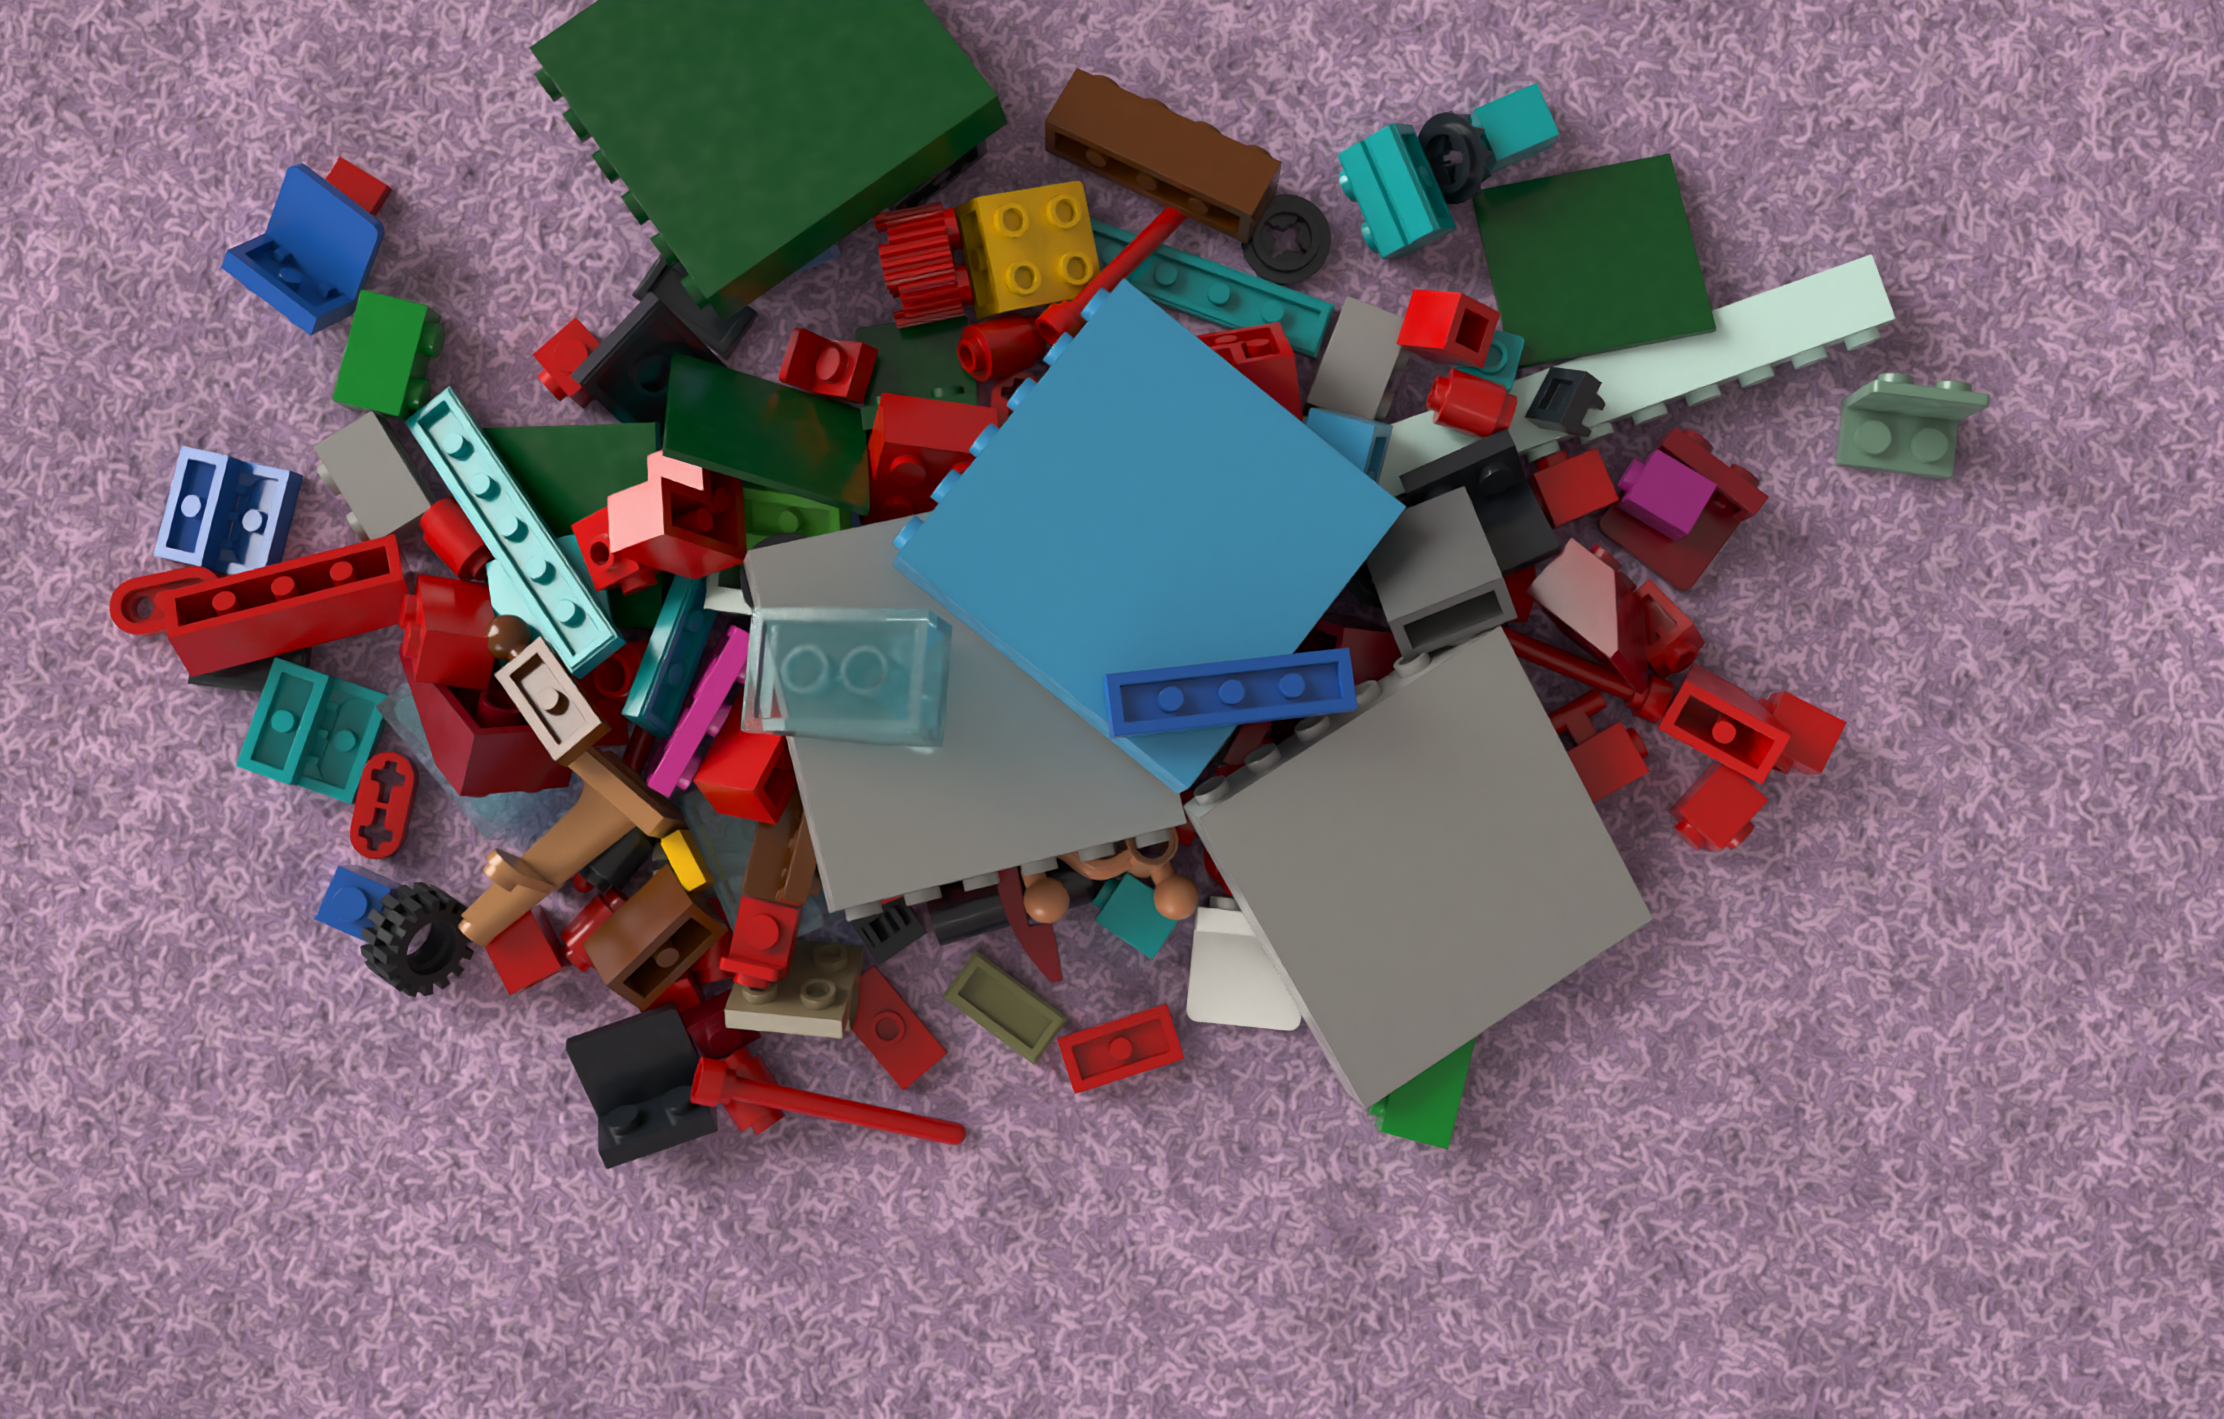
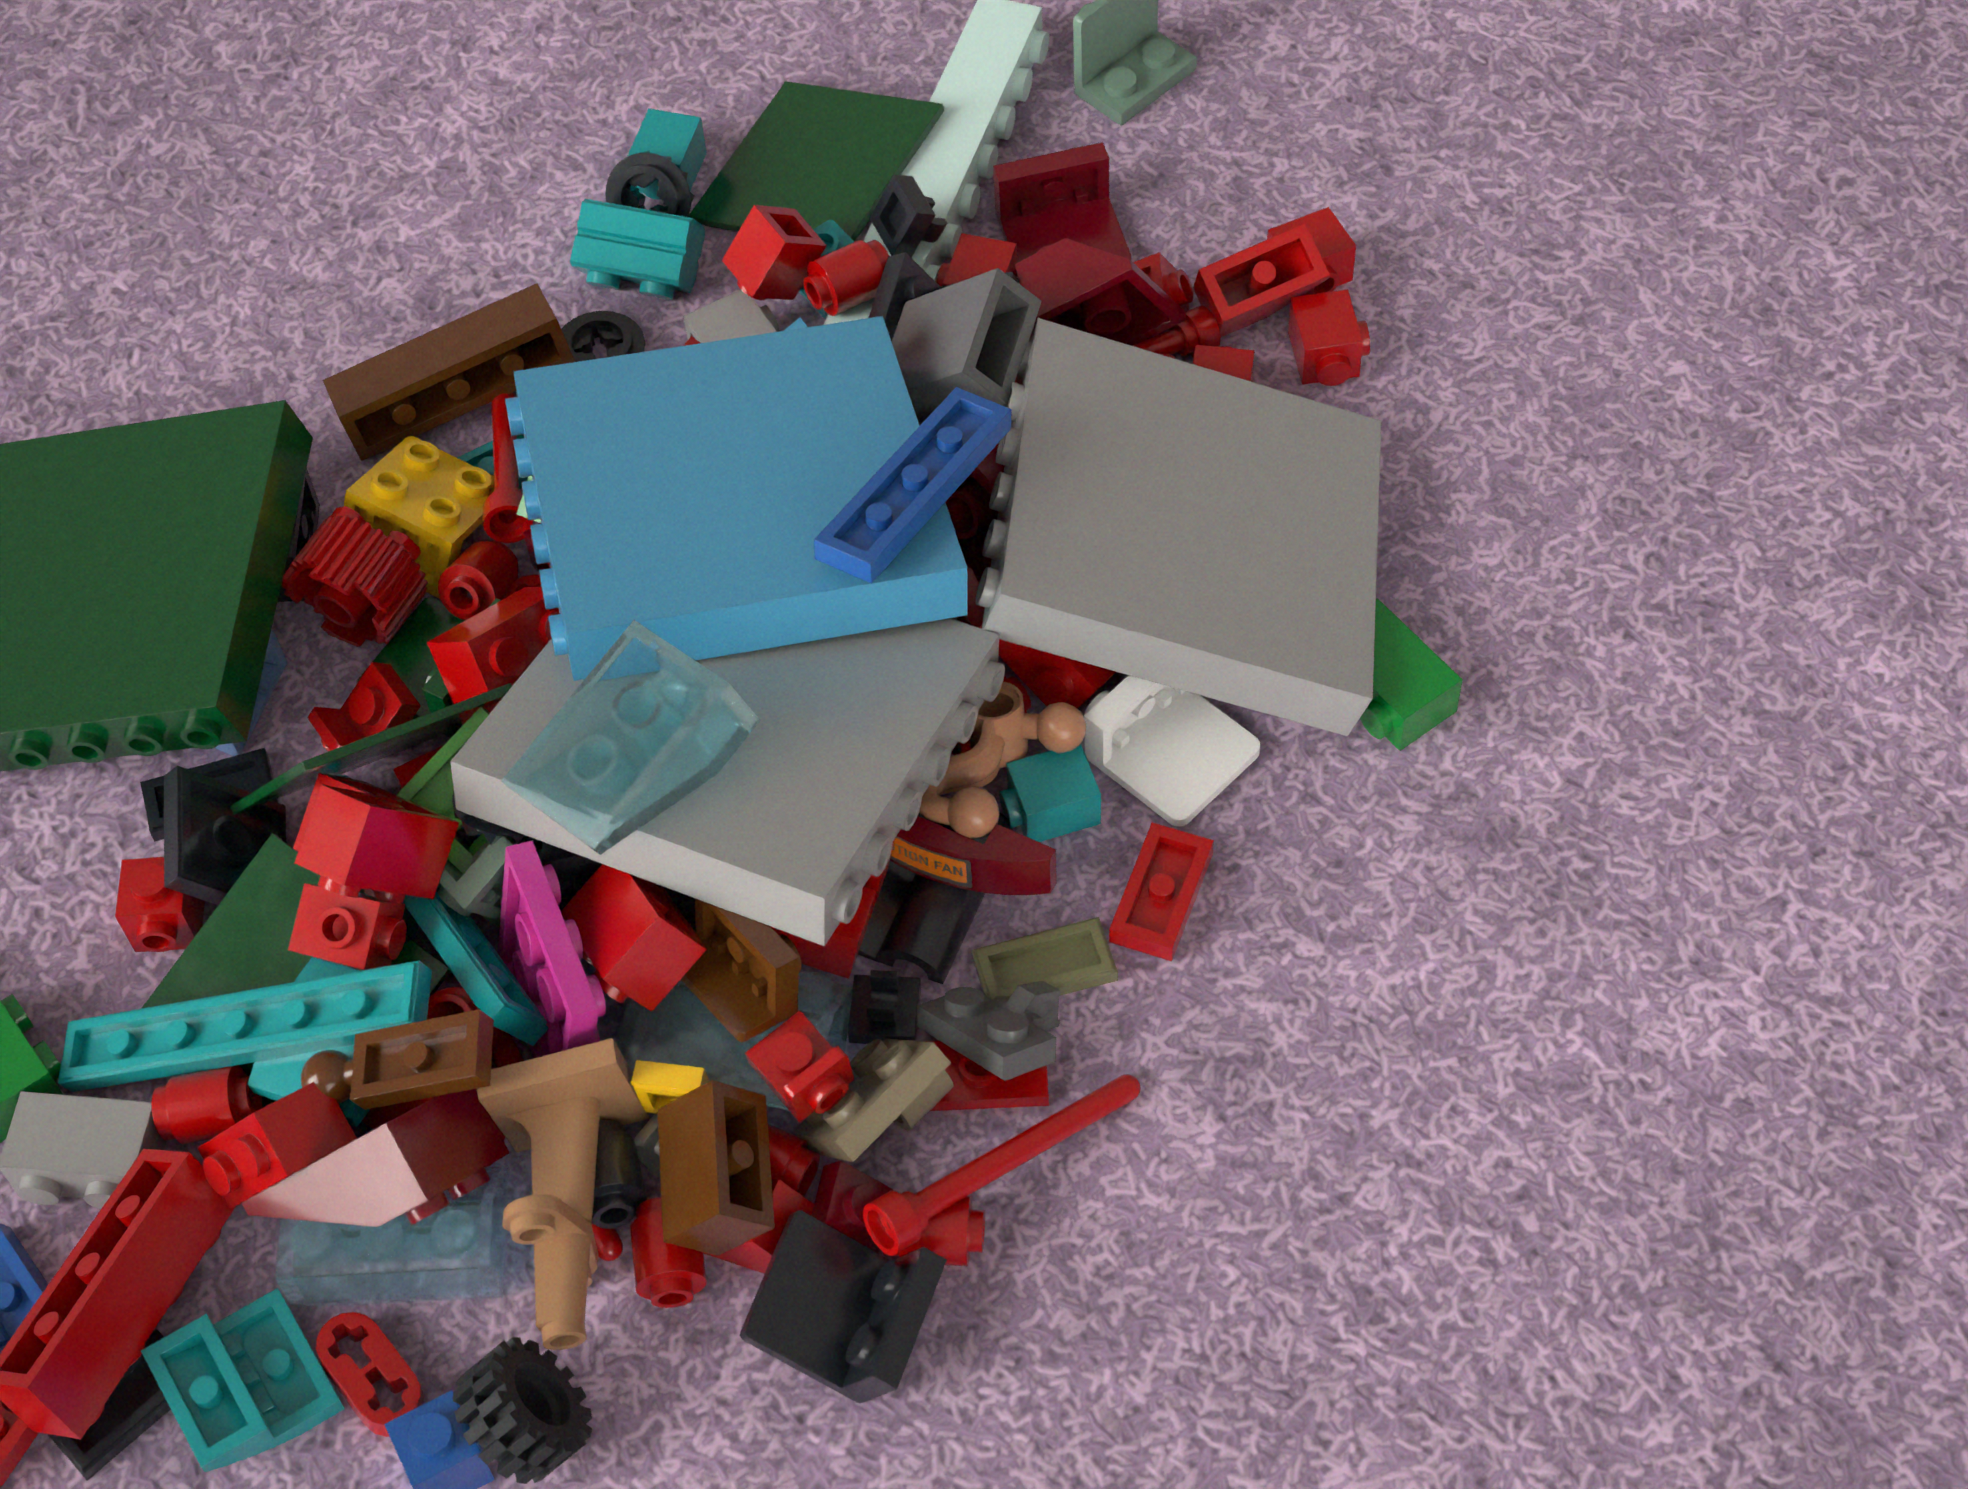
camera: 45 degrees left, 30 degrees down
(527, 952) = (625, 1334): red brick -> none
(918, 1023) = (999, 1033): none -> dark grey hinge
(1664, 494) = (1039, 209): magenta brick -> none

